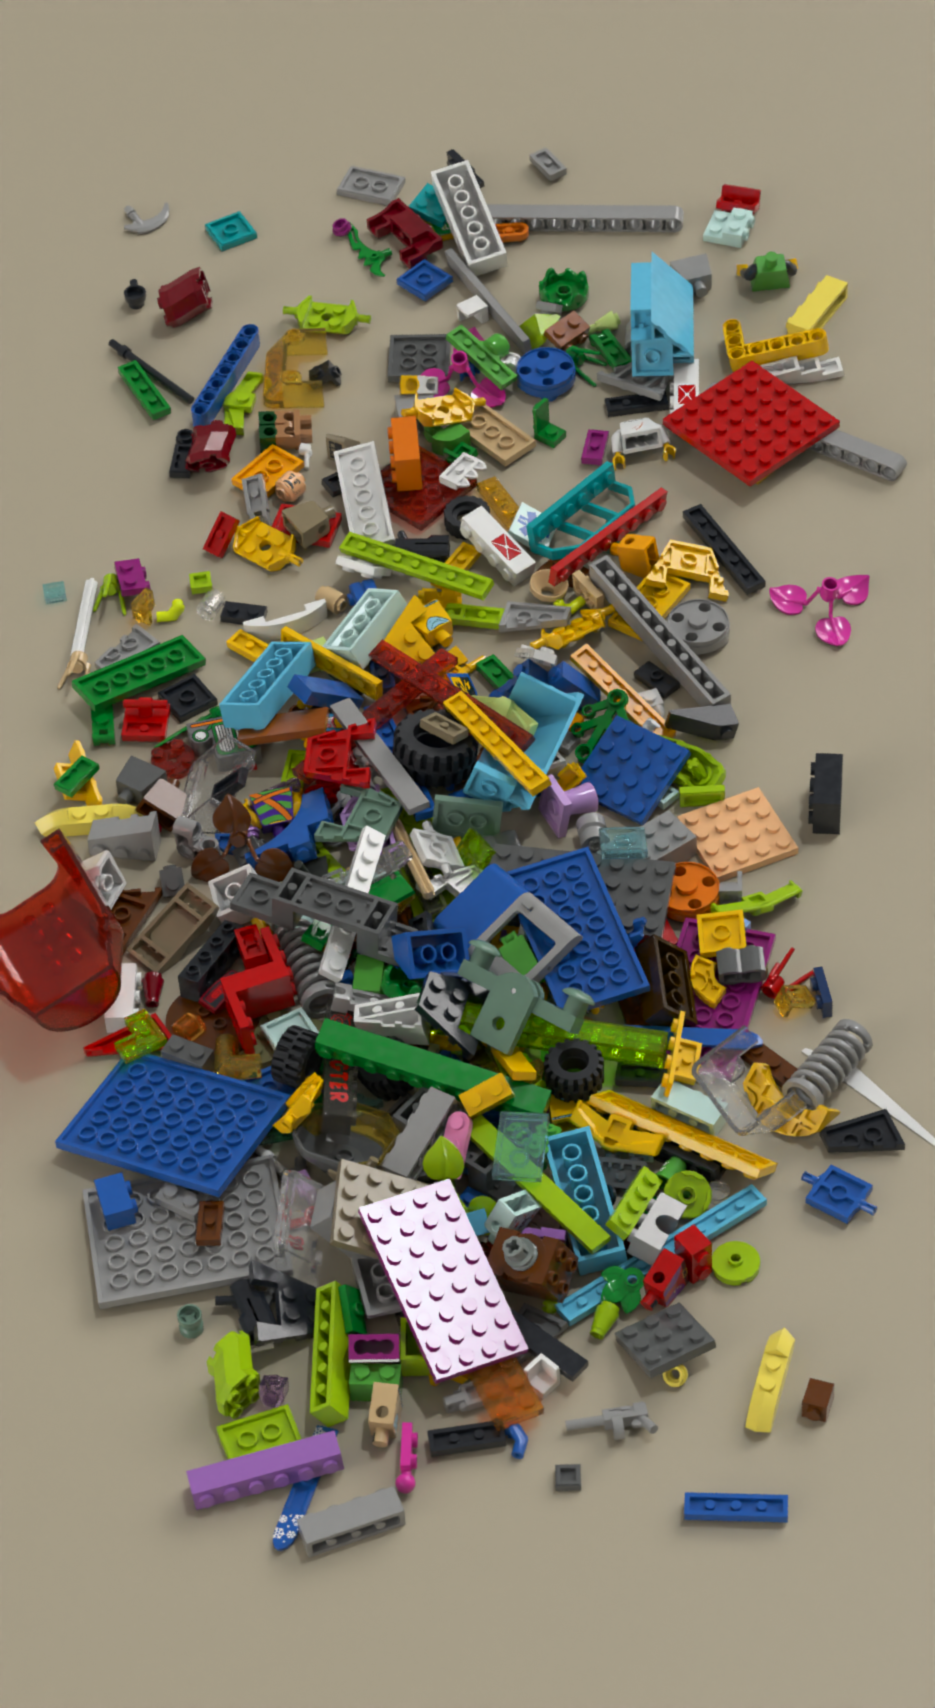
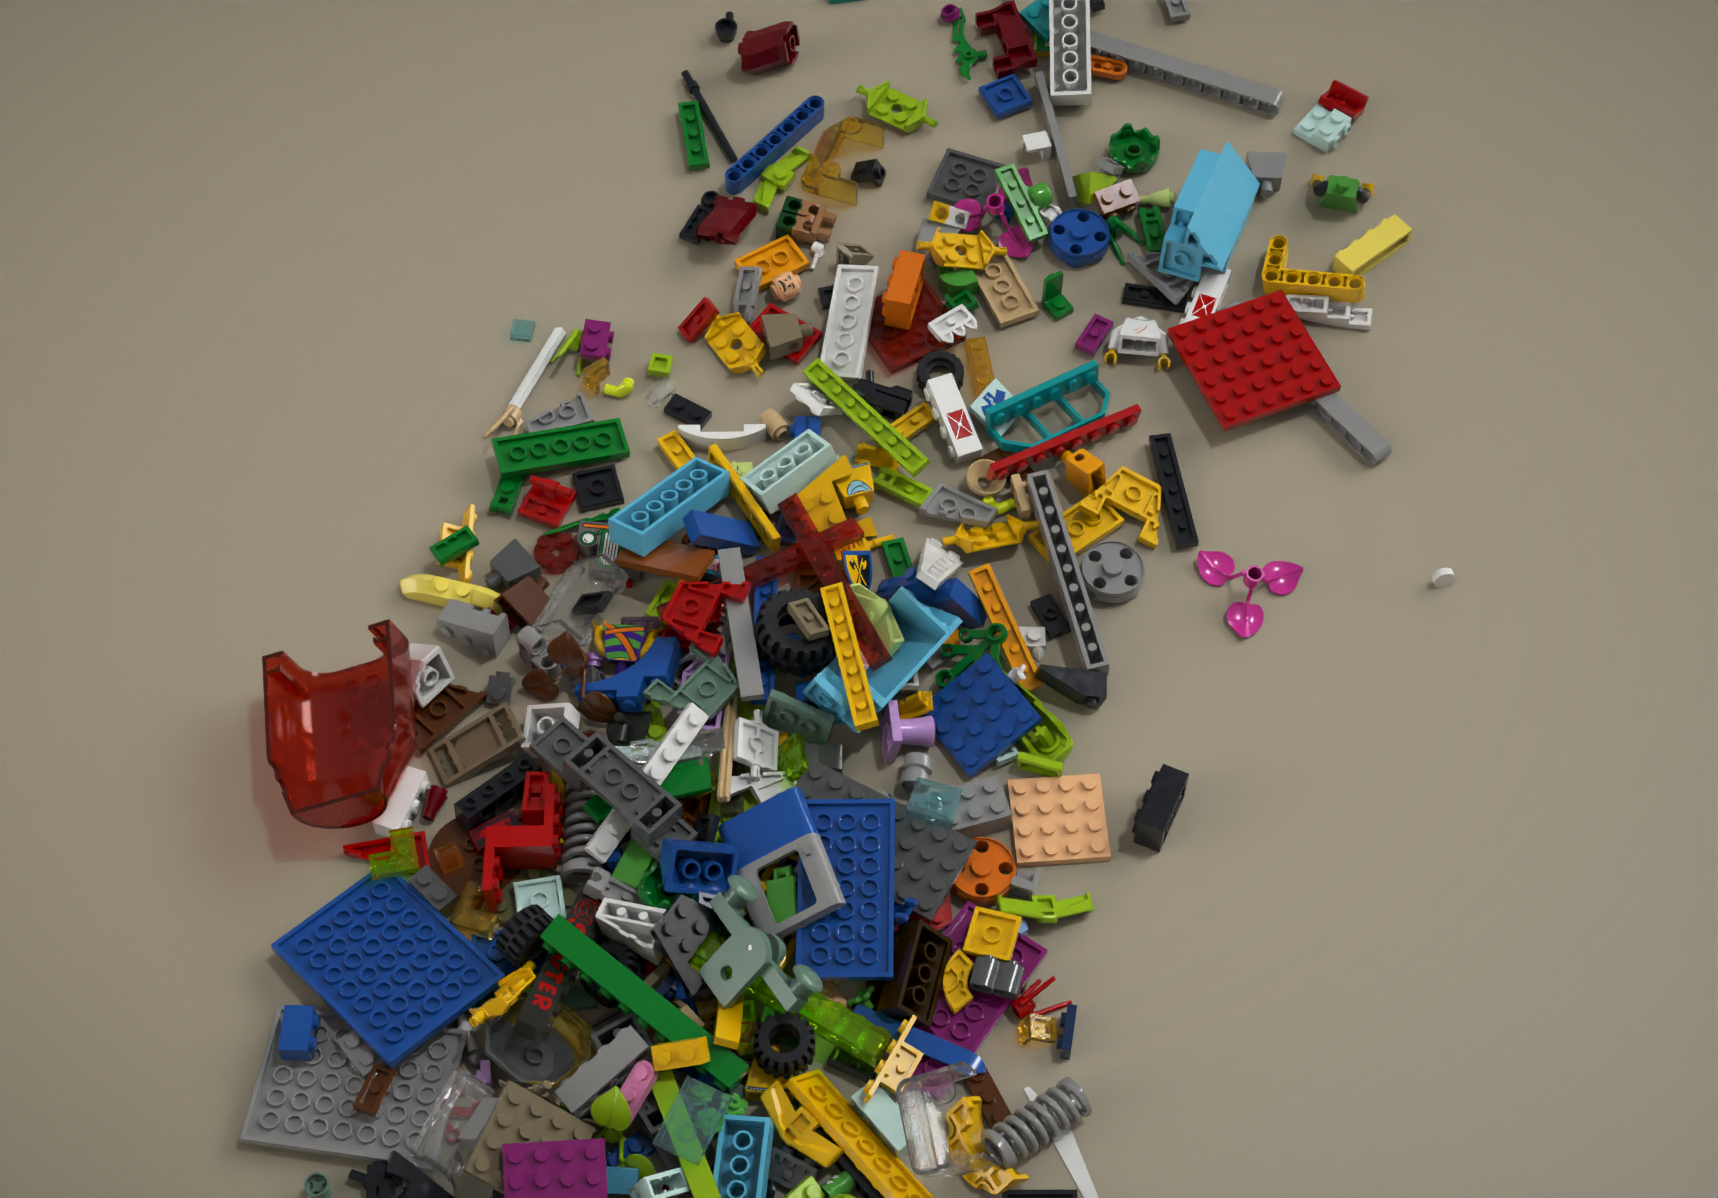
camera: 15 degrees right, 10 degrees up
(627, 1019) = (862, 998): none -> bright green plant

